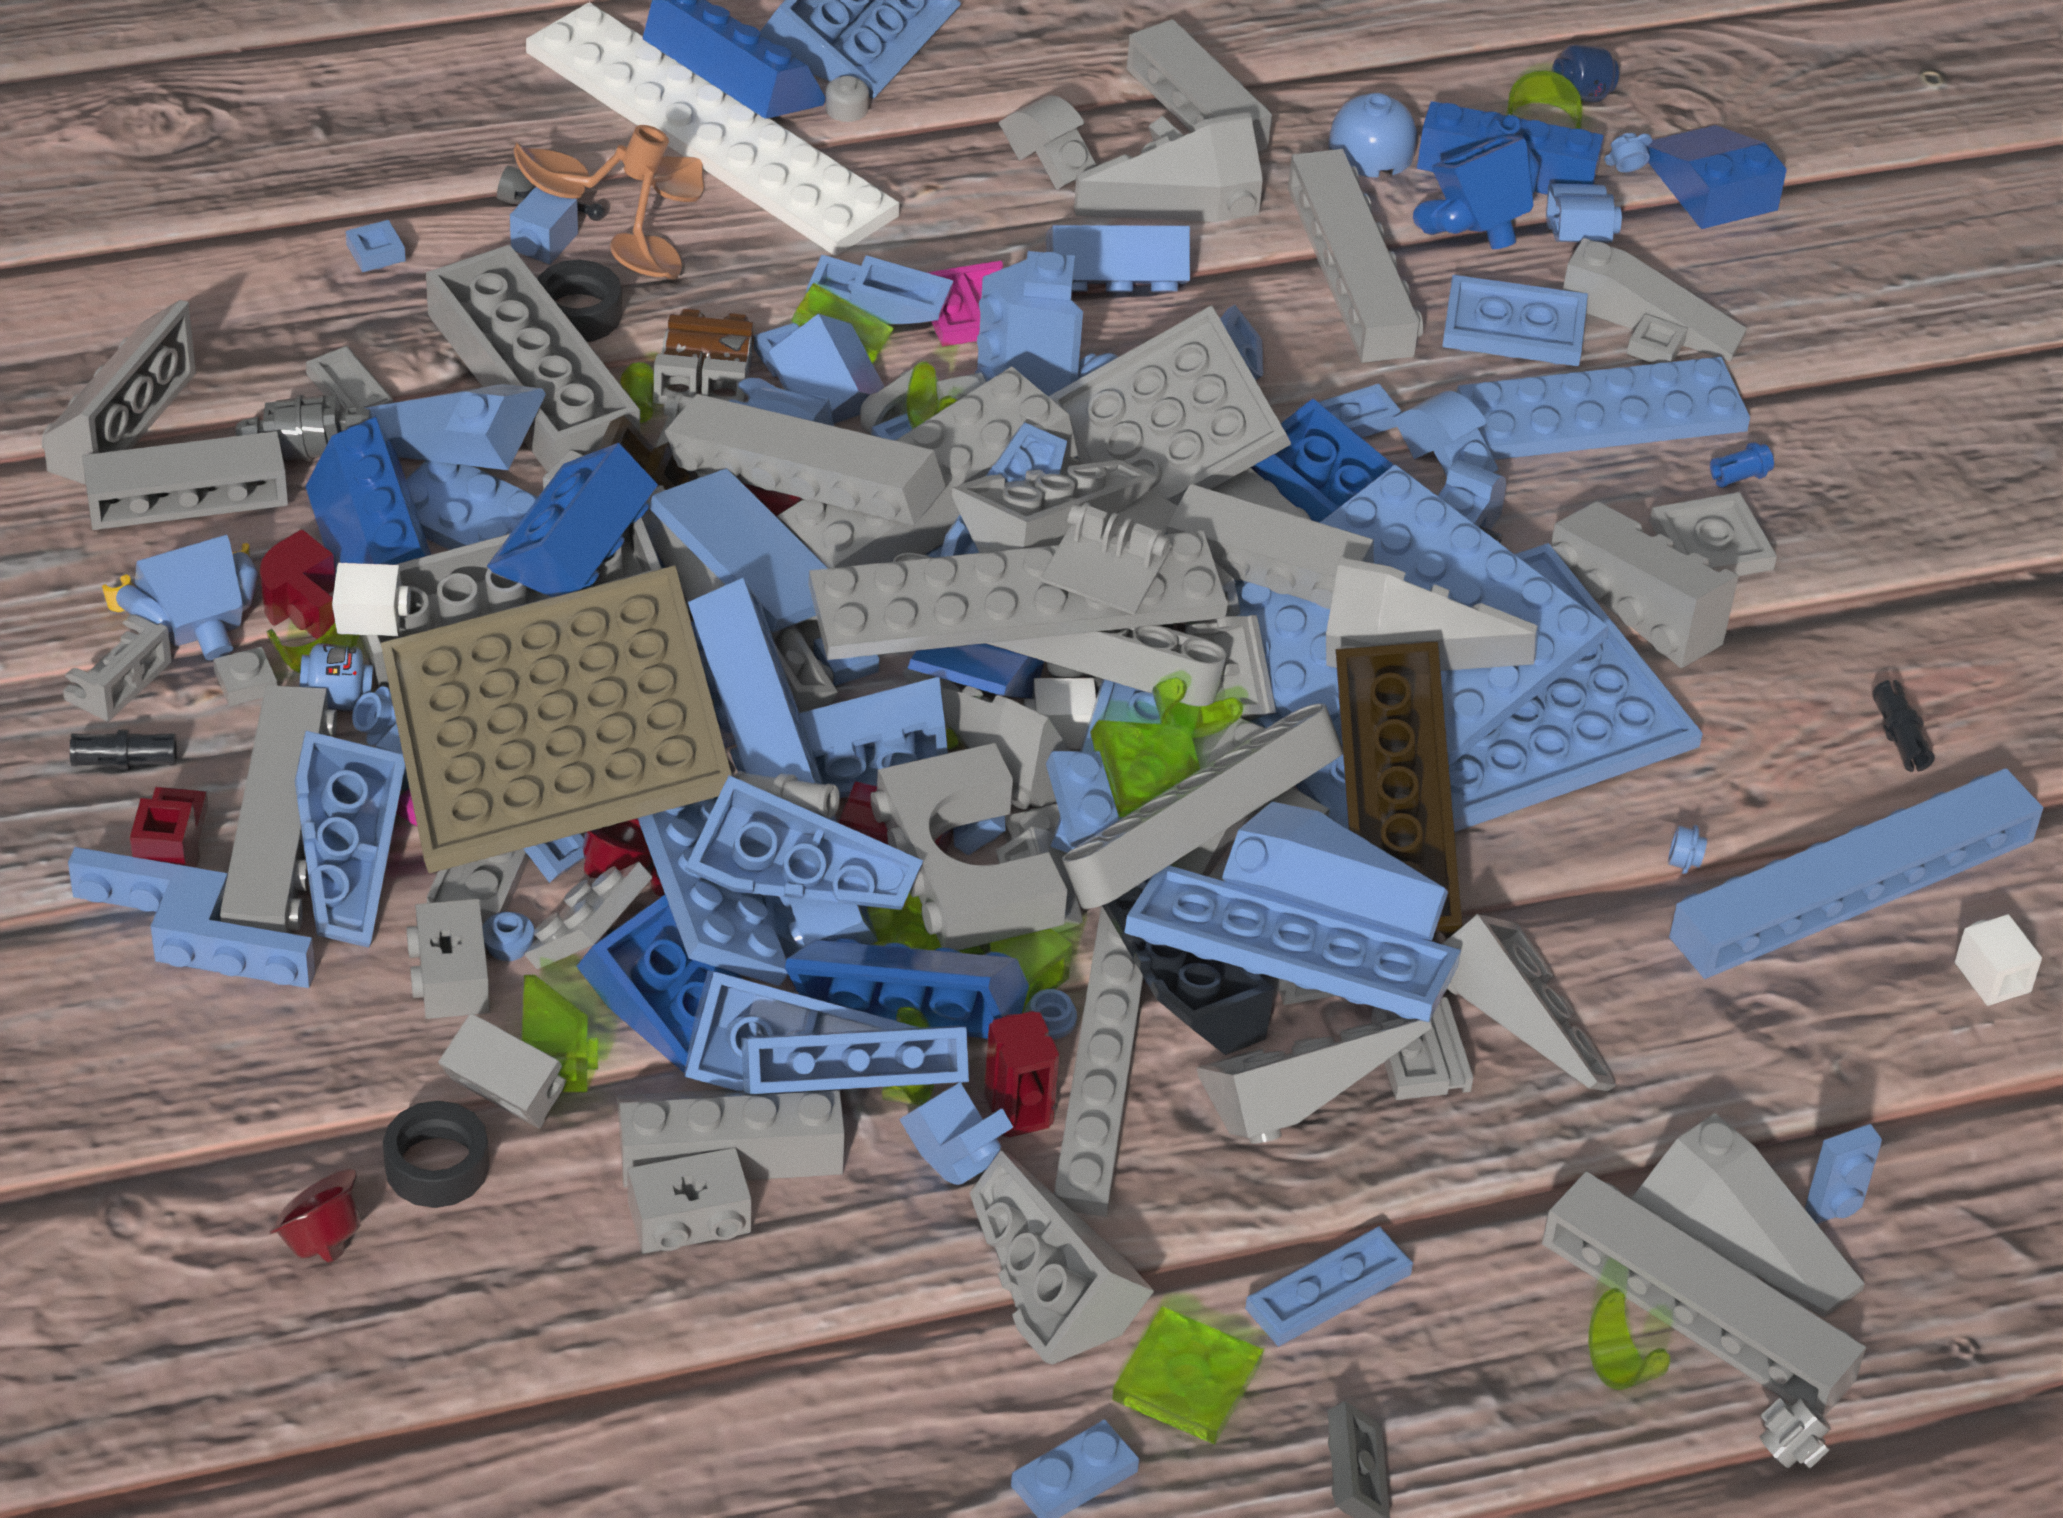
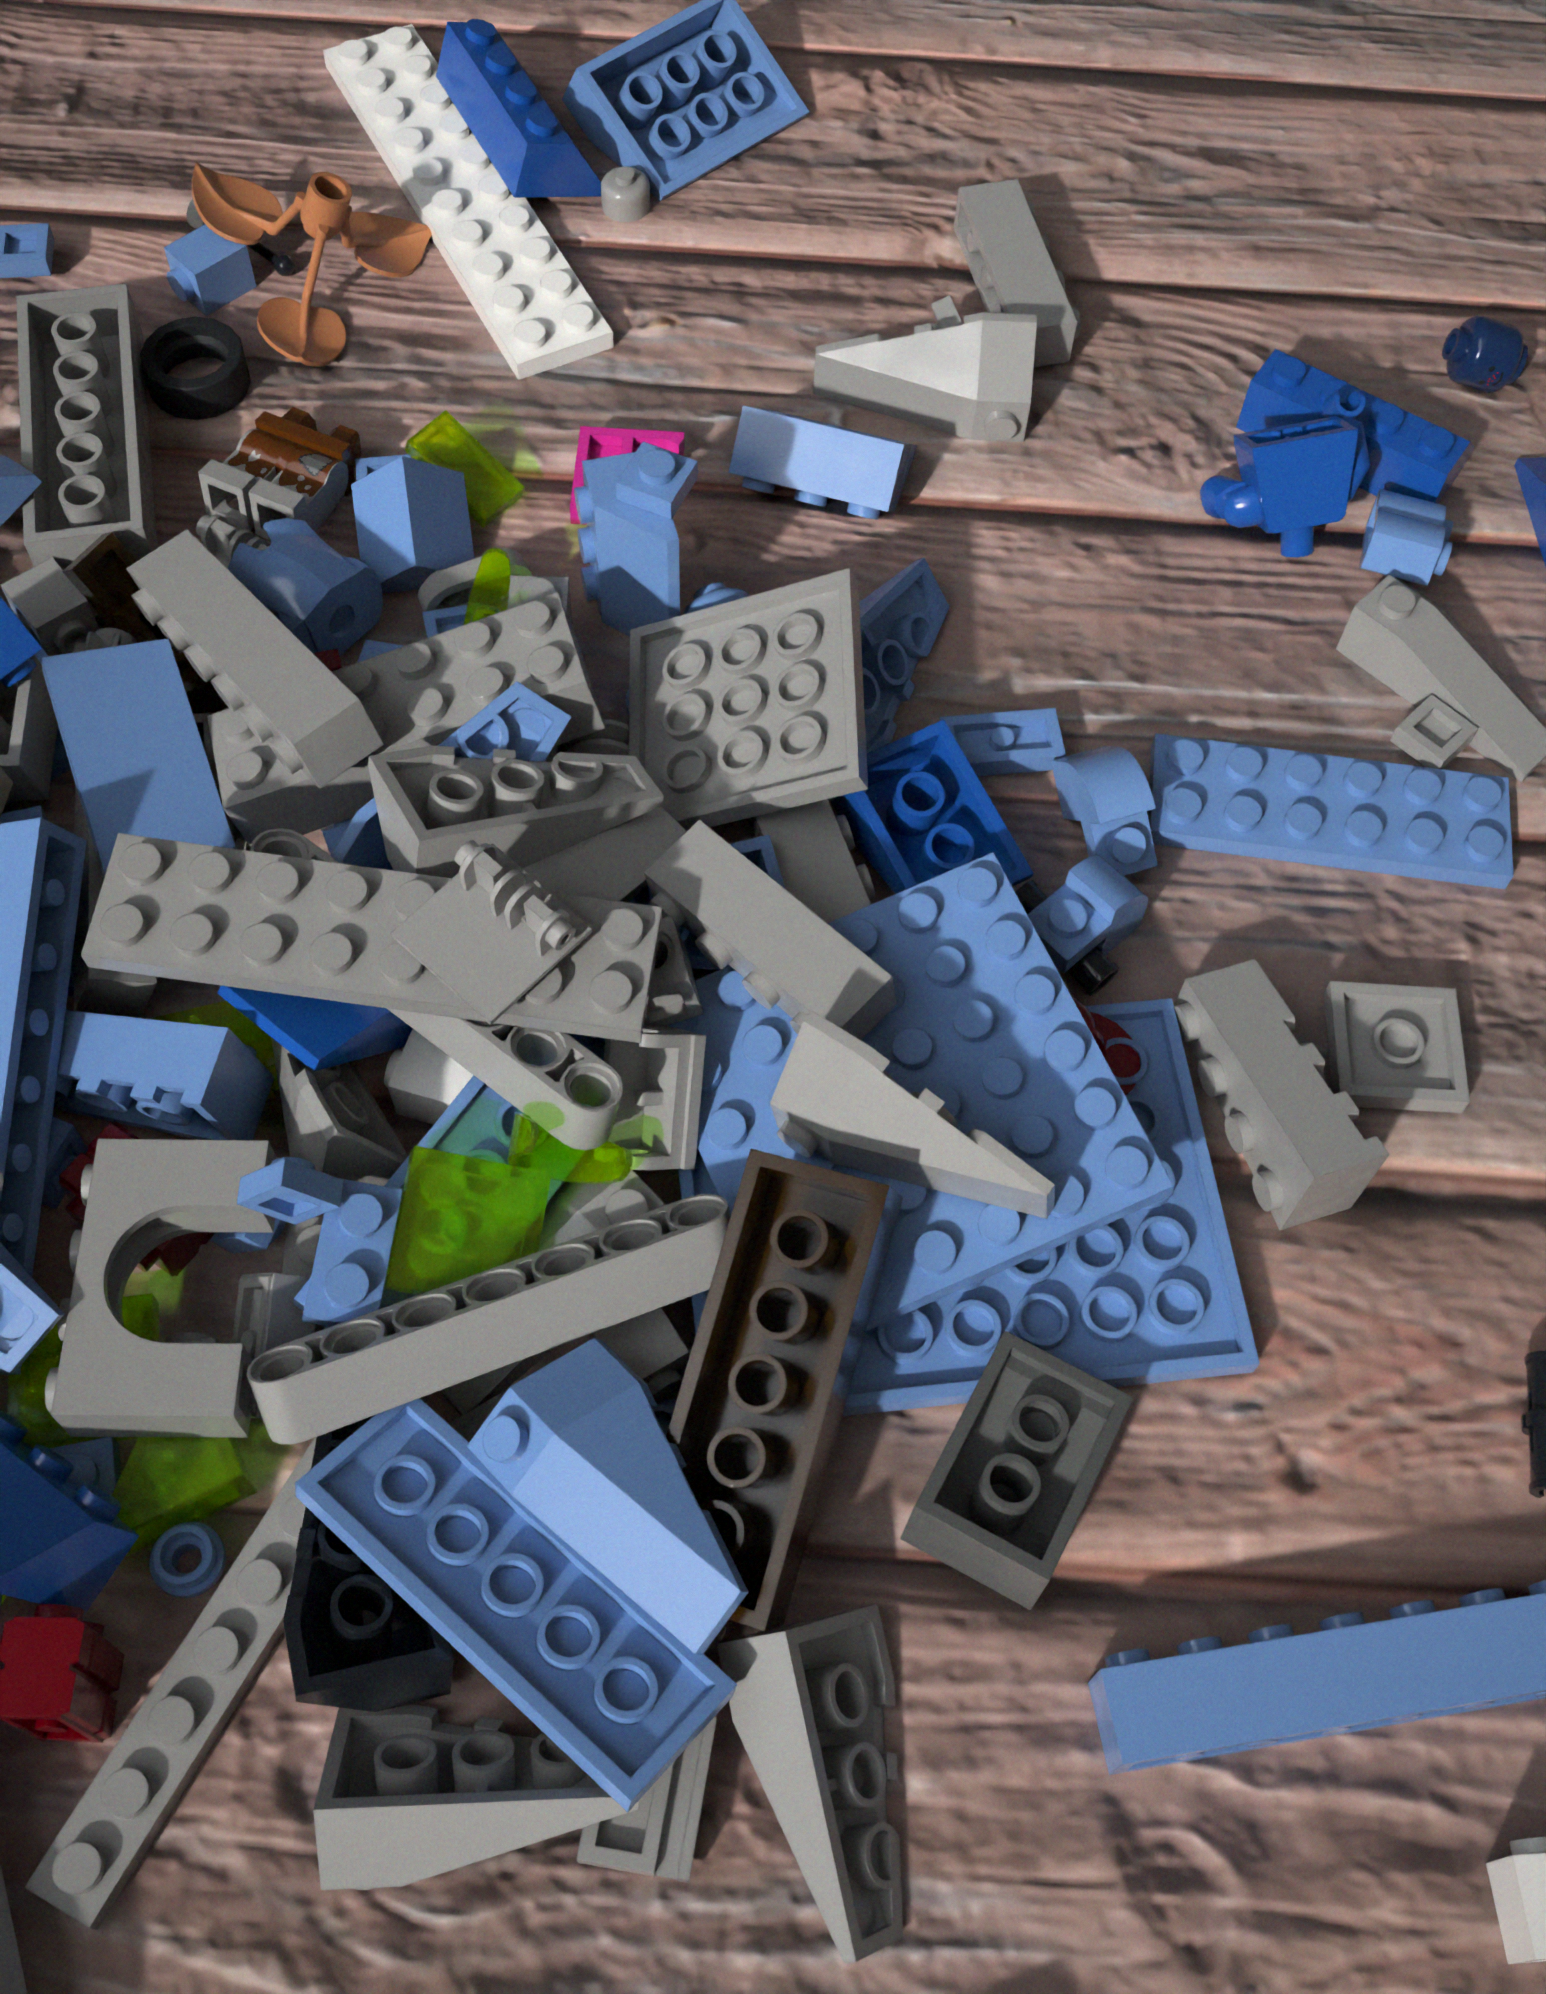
camera: 20 degrees right, 15 degrees up
(639, 385) = (189, 502): clear neon green pin -> none
(884, 289) = (523, 436): medium blue slope -> none
(1033, 760) = (290, 1190): none -> medium blue plate
(1052, 133) = (815, 285): light grey brick -> none
(1354, 256) = (1104, 528): light grey brick -> none
(1375, 134) = (1197, 375): medium blue cylinder -> none
(1515, 320) = (1265, 661): medium blue plate -> none
(1549, 89) = (1427, 361): clear neon green helmet -> none
(1574, 825) = (1017, 1470): none -> dark grey slope
(1629, 152) = (1499, 468): medium blue plate -> none
(1687, 848) = (1166, 1547): medium blue plate -> none
(1753, 461) = (1477, 944): blue pin -> none

